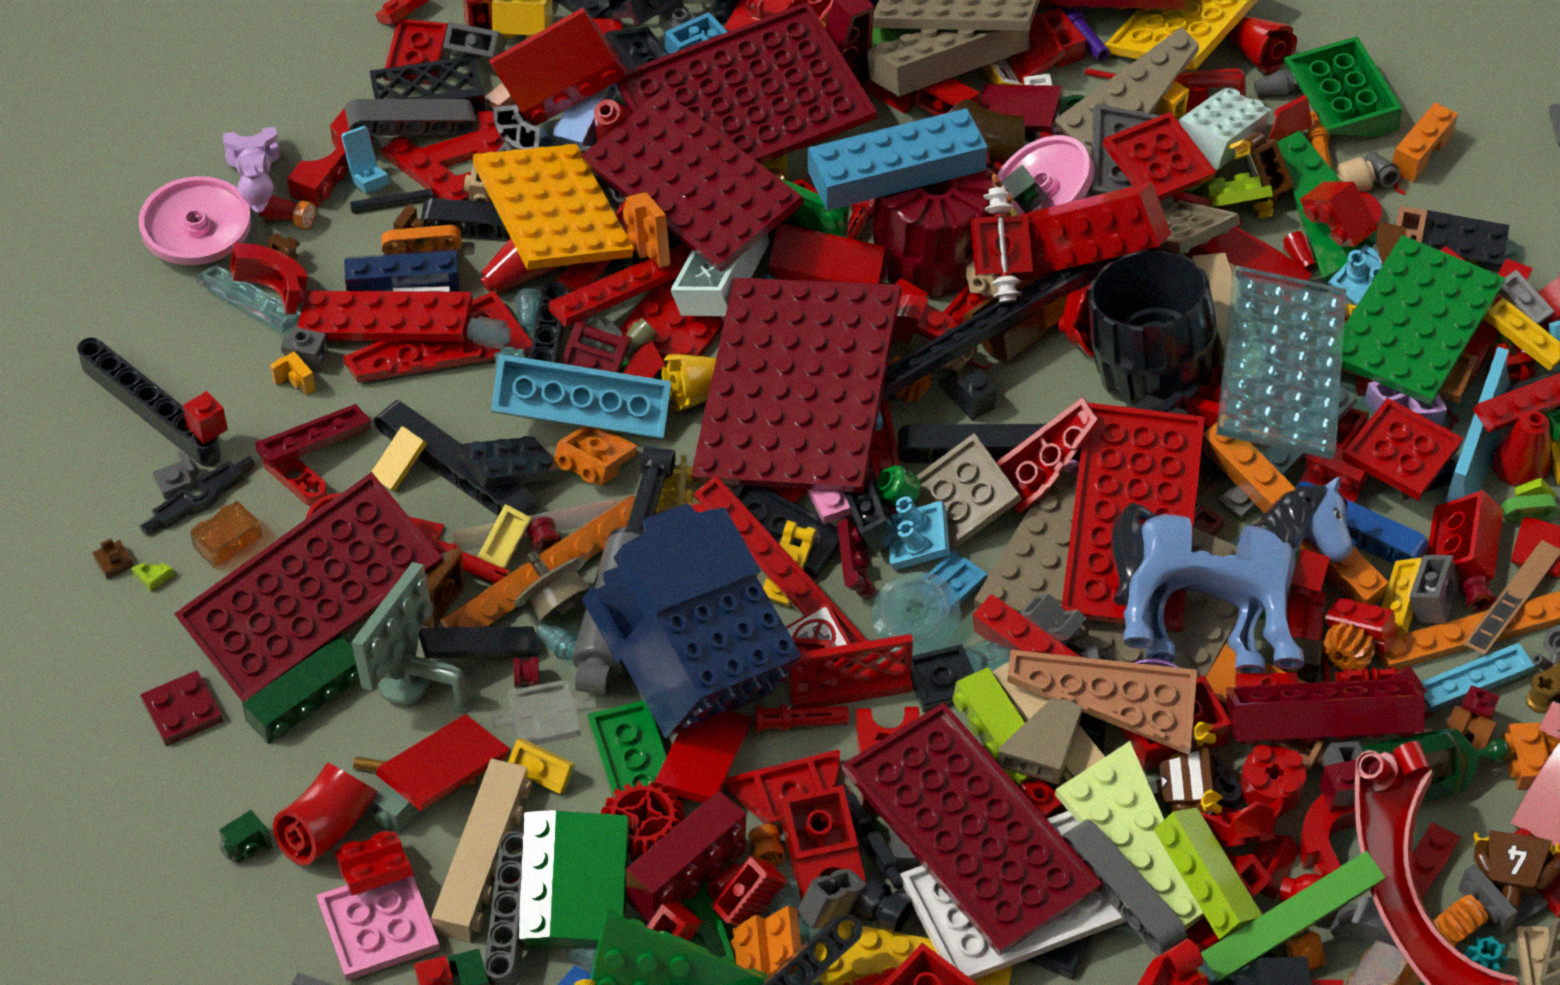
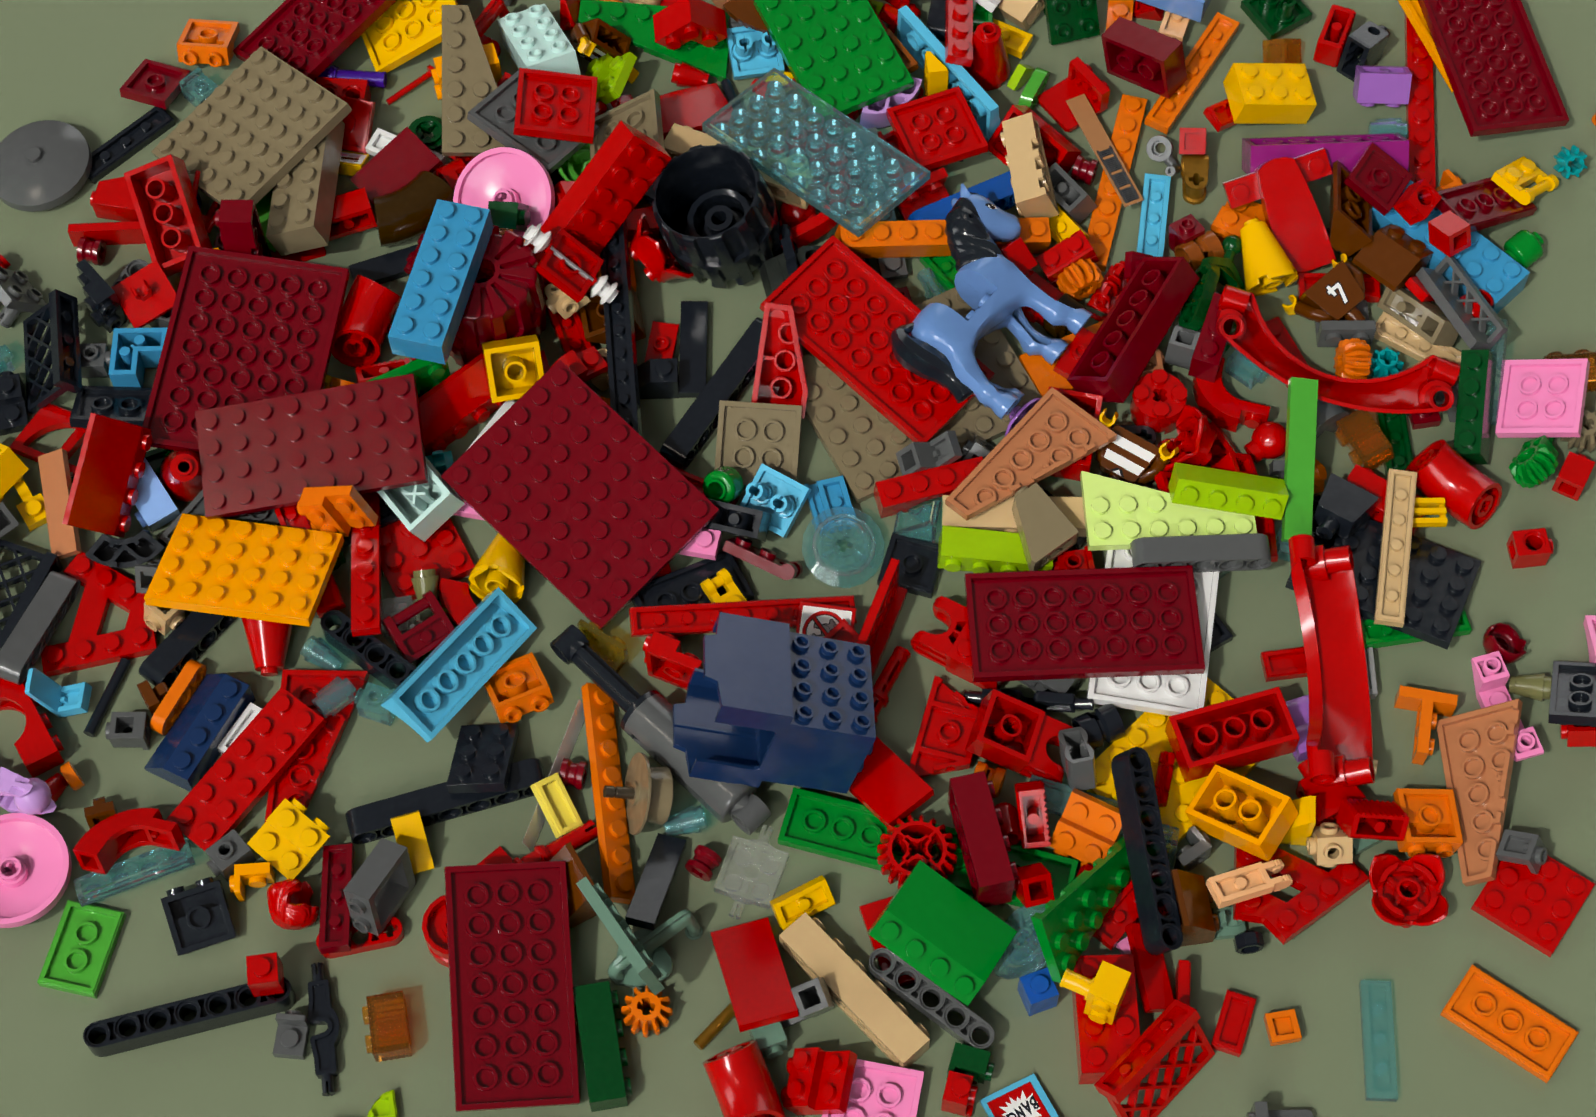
camera: 55 degrees left, 10 degrees up
(163, 306) = (81, 949): none -> bright green tile
(238, 357) = (198, 916): none -> black plate
(288, 408) = (291, 904): none -> red hair
(335, 433) = (379, 887): none -> dark grey window
(344, 376) = (289, 838): none -> yellow plate
(358, 706) = (635, 1008): none -> orange gear
(368, 226) = (126, 722): none -> dark grey brick
(443, 814) = (811, 1000): none -> dark grey brick
(880, 262) = (512, 366): none -> yellow brick
(1014, 378) = (662, 341): none -> red plate
(1030, 400) = (693, 348): none -> black tile
(1421, 535) = (1028, 167): none -> tan wedge
(1460, 415) = (934, 75): none -> yellow slope
(1503, 783) = (1264, 259): none -> yellow cone

